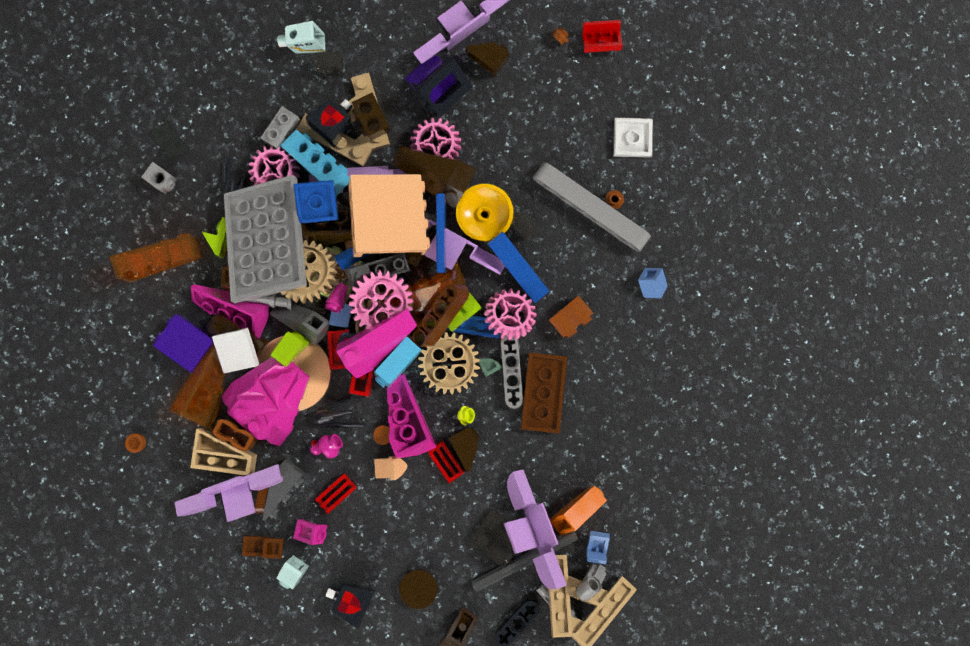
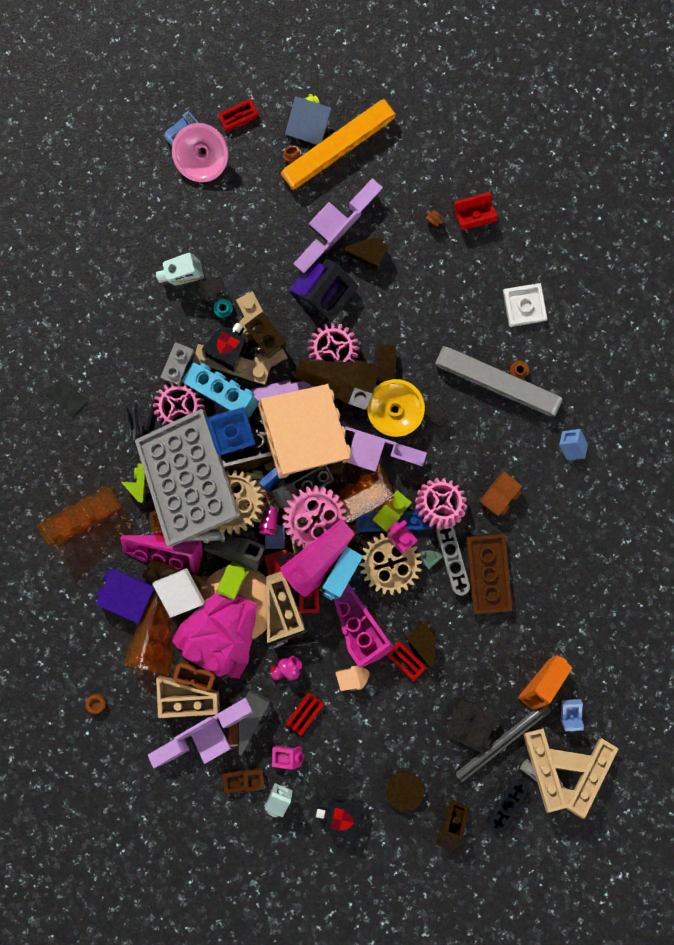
camera: 20 degrees left, 0 degrees up
(154, 172) = (60, 431): light grey brick -> none
(332, 386) = (282, 609): none -> tan wedge
(336, 89) = (223, 314): none -> teal plate
(381, 434) = (338, 647): dark orange tile -> none
(439, 315) = (384, 499): reddish brown beam -> none
(441, 233) = (359, 438): blue tile -> none
(464, 338) = (401, 536): none -> dark pink bracket
(466, 415) = (417, 611): neon yellow plate -> none
(484, 167) = (386, 361): none -> dark brown slope
(518, 267) = (439, 455): blue tile -> none
(533, 531) = (507, 712): lavender piece -> none
(591, 583) = (574, 750): light grey piece -> none

